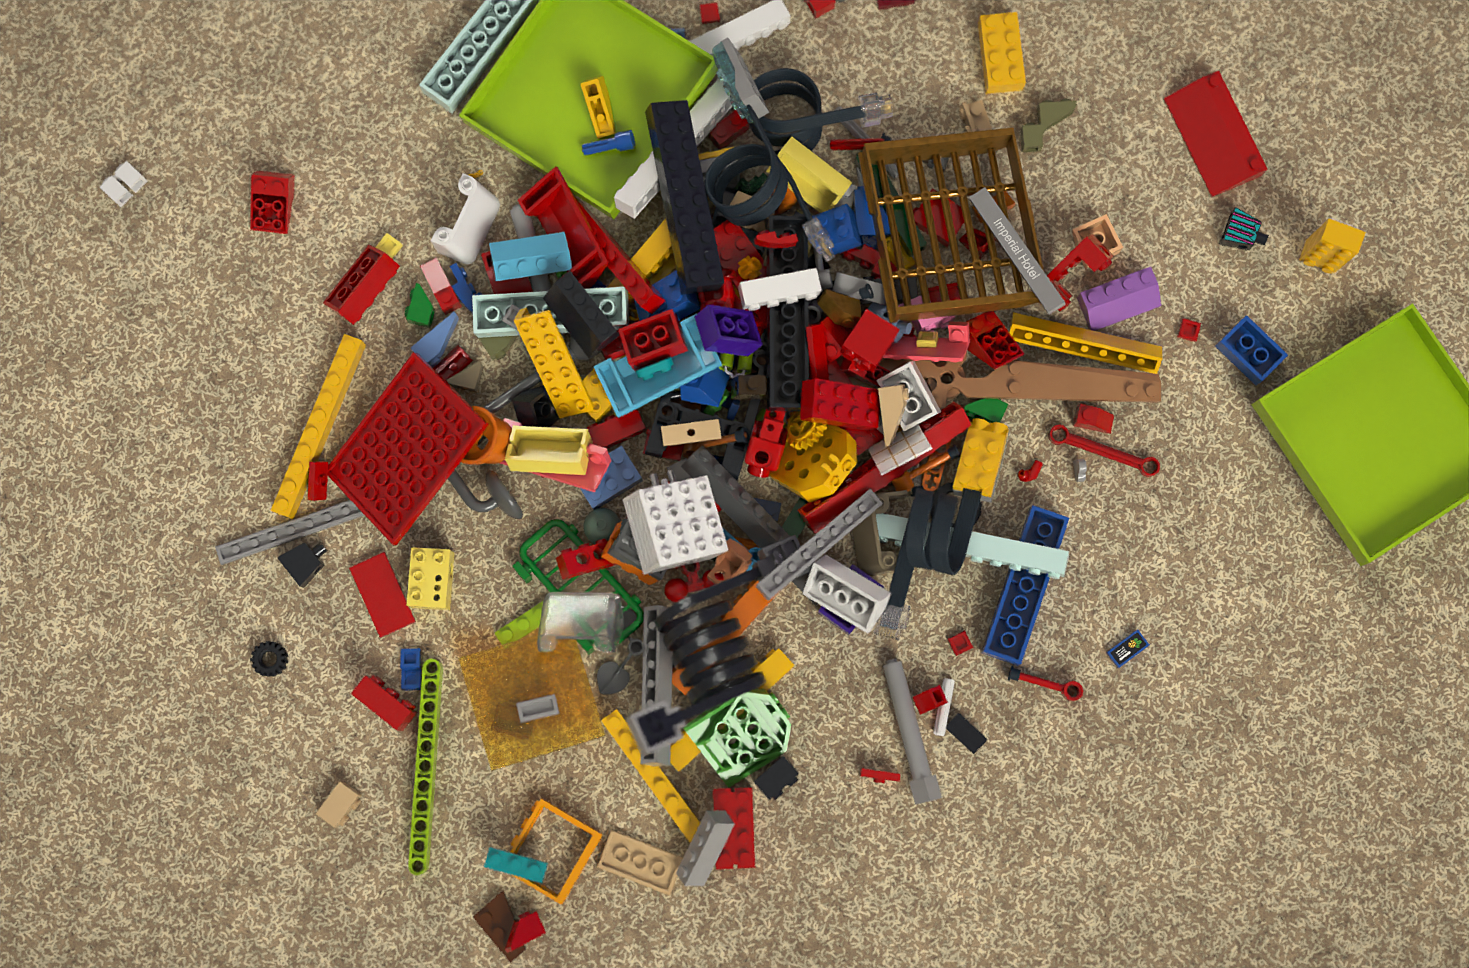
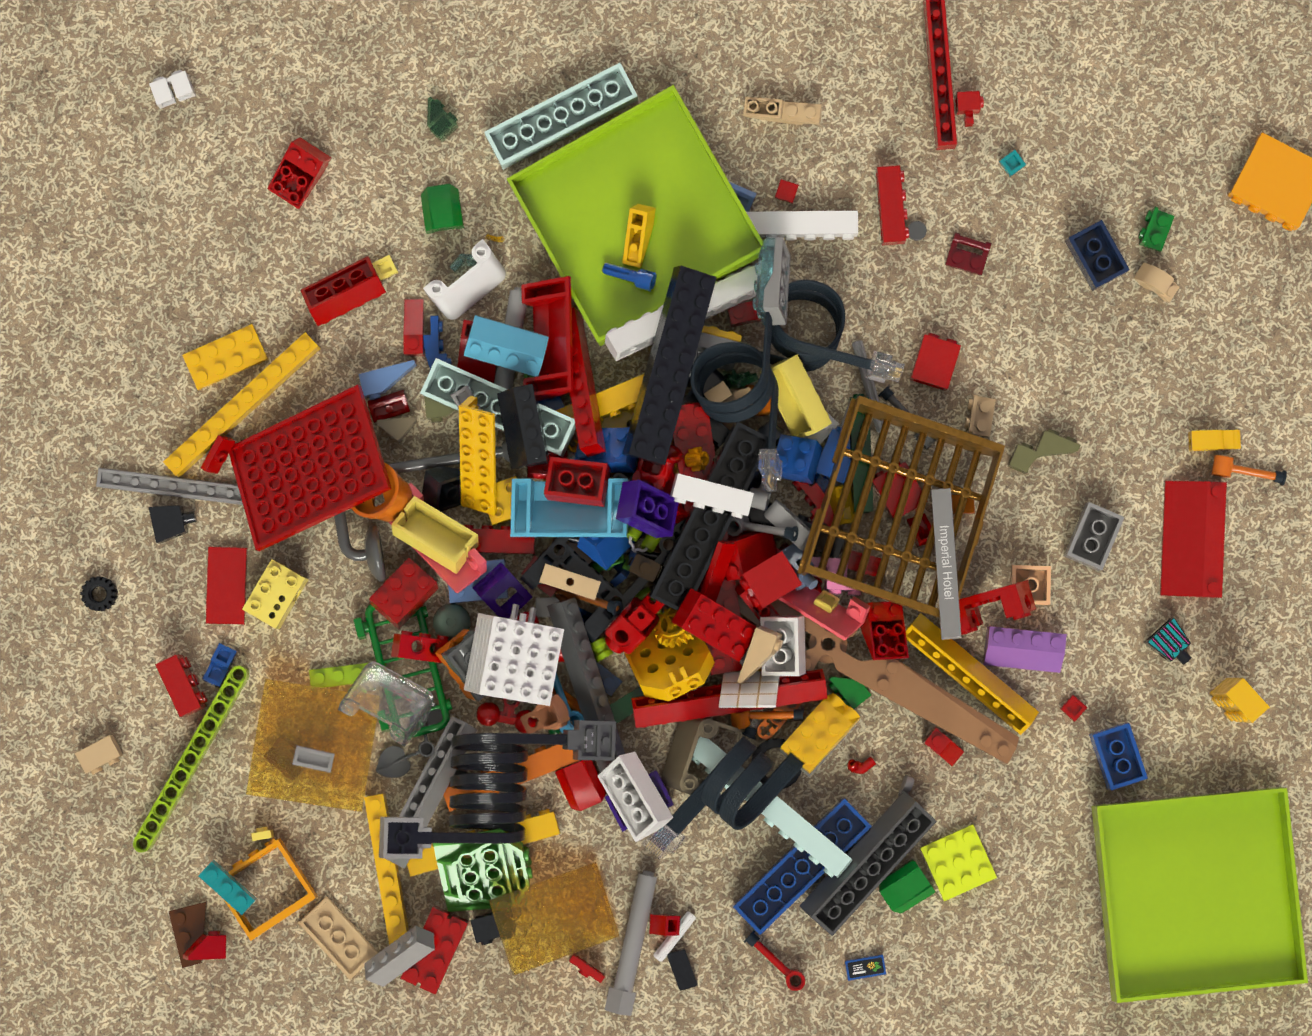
camera: 25 degrees right, 5 degrees up
(283, 393) = (225, 357): none -> yellow plate
(376, 98) = (440, 122): none -> clear green slope
(414, 172) = (441, 208): none -> green slope
(420, 310) = (386, 341): green slope -> none
(454, 207) = (462, 260): none -> clear light blue arm
(524, 801) = (262, 833): none -> light yellow plate
(546, 520) = (403, 593): none -> red brick
(625, 468) = (495, 584): none -> dark purple window
(662, 366) = (574, 510): teal plate -> none
(749, 483) = (601, 649): none -> lime wheel
(770, 240) = (726, 446): red slope -> none
(791, 612) = (581, 785): none -> red slope
(818, 544) = (632, 741): light grey plate -> none
(828, 743) = (554, 918): none -> clear yellow plate
(840, 308) = (760, 537): pearl gold slope -> none
(851, 144) = (858, 385): red axle -> none
(913, 93) = (935, 361): none -> red brick
(960, 643) = (718, 886): red tile -> none
(1001, 52) = (1036, 364): yellow brick -> none
(1087, 543) = (872, 862): none -> dark grey brick
(1104, 451) = (936, 778): red piece -> none
(1126, 558) = (905, 887): none -> green slope
(1129, 173) = (1093, 536): none -> light grey brick
(1160, 514) = (958, 862): none -> neon yellow plate
(1187, 43) = (1214, 440): none -> yellow piece
(1208, 60) = (1224, 466): none -> orange piece

